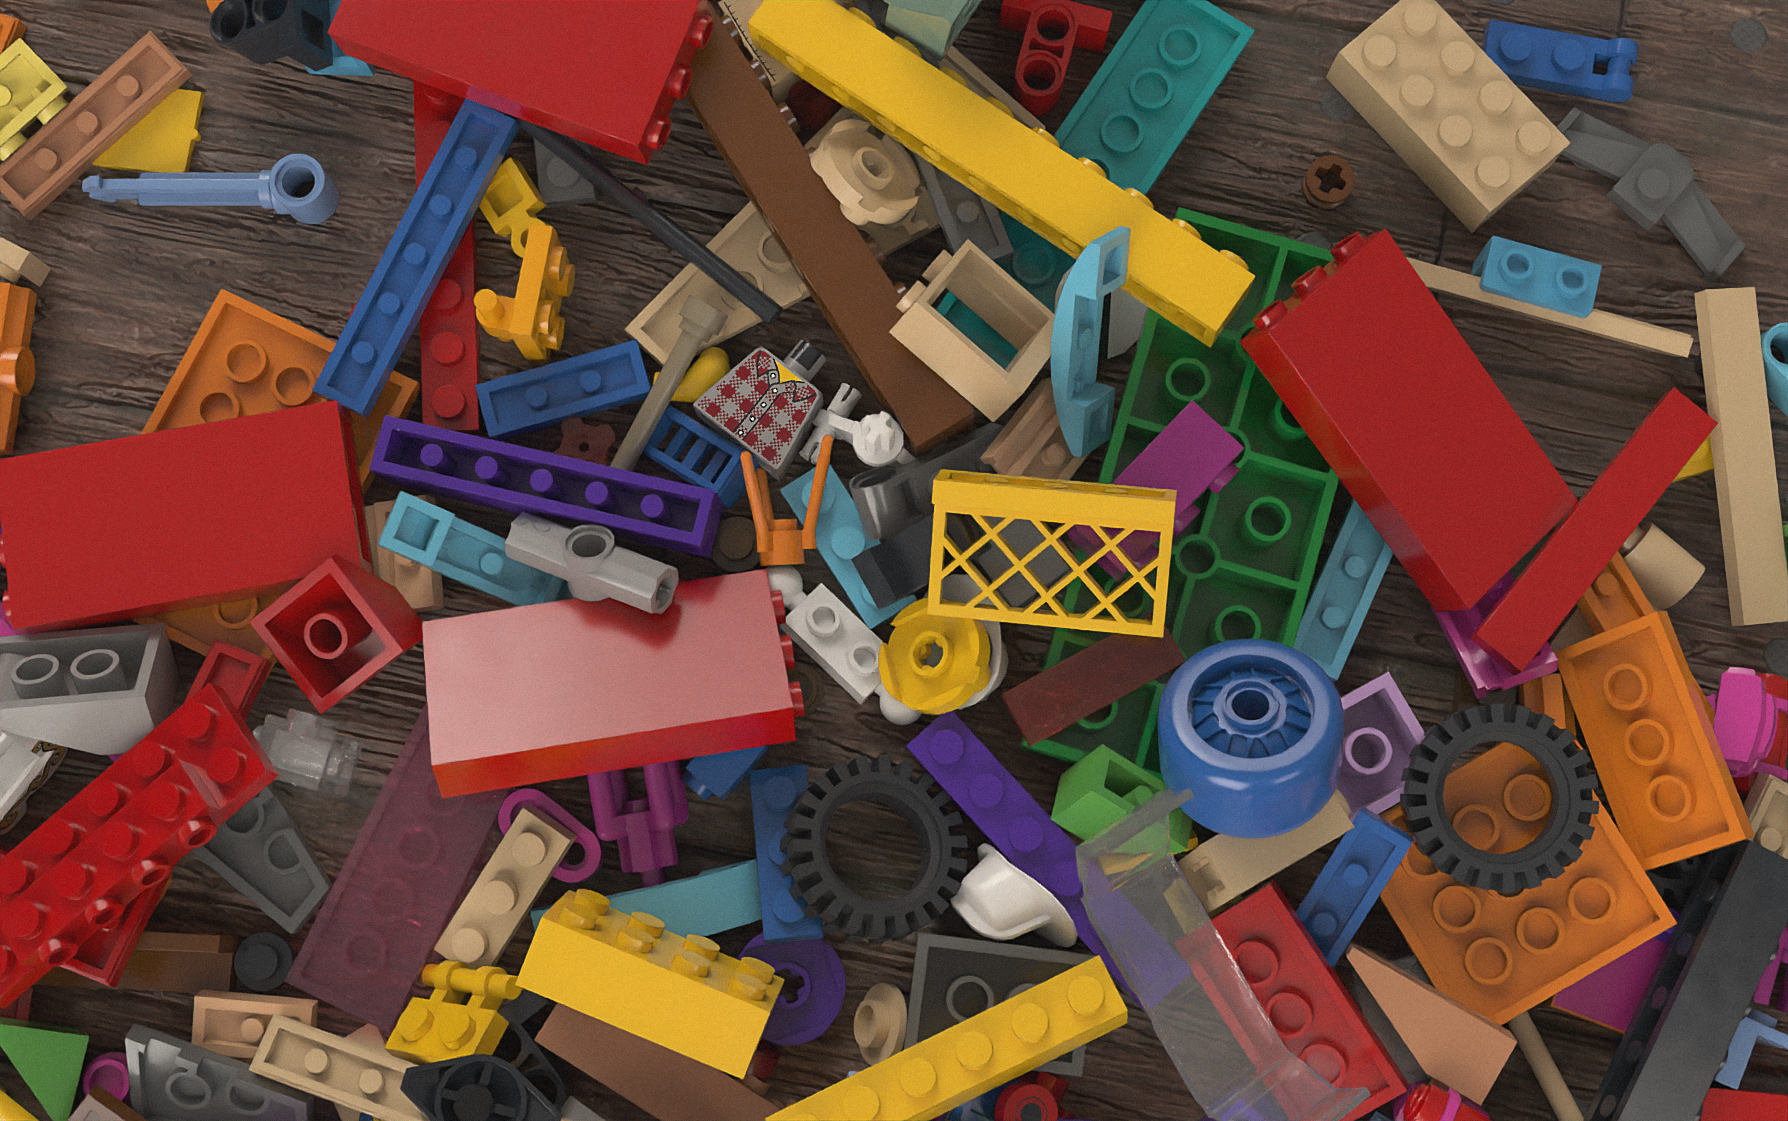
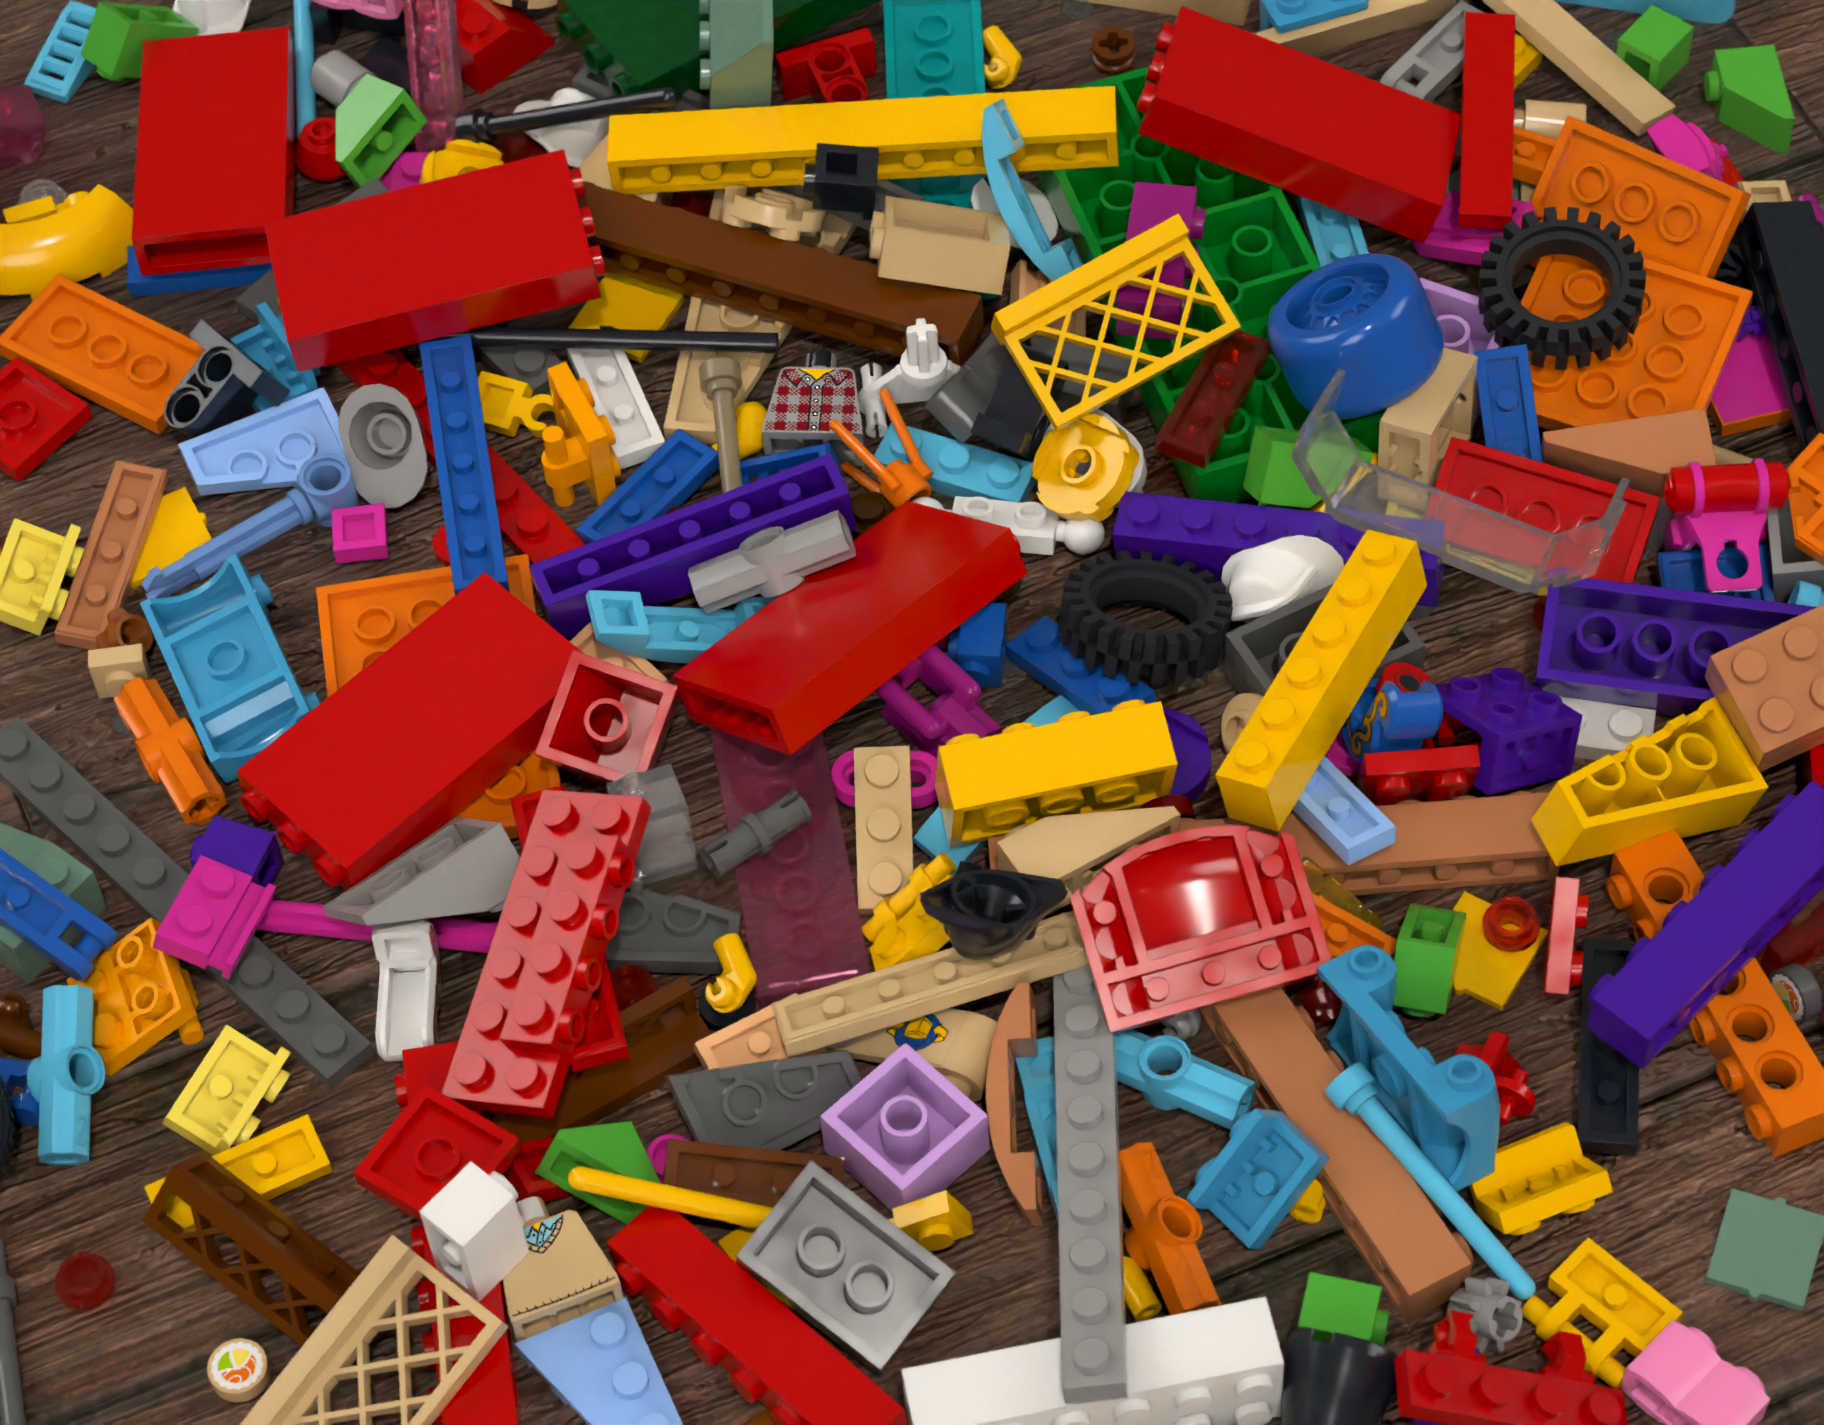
camera: 30 degrees left, 25 degrees down
(40, 240) = (130, 626): none -> dark orange plate
(90, 325) = (229, 665): none -> dark azure piece
(195, 890) = (631, 985): none -> clear red plate
(269, 959) = (737, 976): none -> yellow arm
(294, 108) = (264, 447): none -> light blue wing
(302, 252) = (360, 533): none -> dark pink plate
(373, 179) = (383, 445): none -> light grey piece
(387, 826) = (755, 834): none -> dark grey pin
(608, 272) = (621, 401): none -> white plate
(612, 1069) = (1081, 844): none -> tan slope
(688, 175) = (629, 306): none -> yellow piece
(963, 188) = (843, 178): none -> black brick
(1222, 124) = (1005, 58): none -> yellow arm
(1610, 406) = (1433, 59): none -> light grey plate

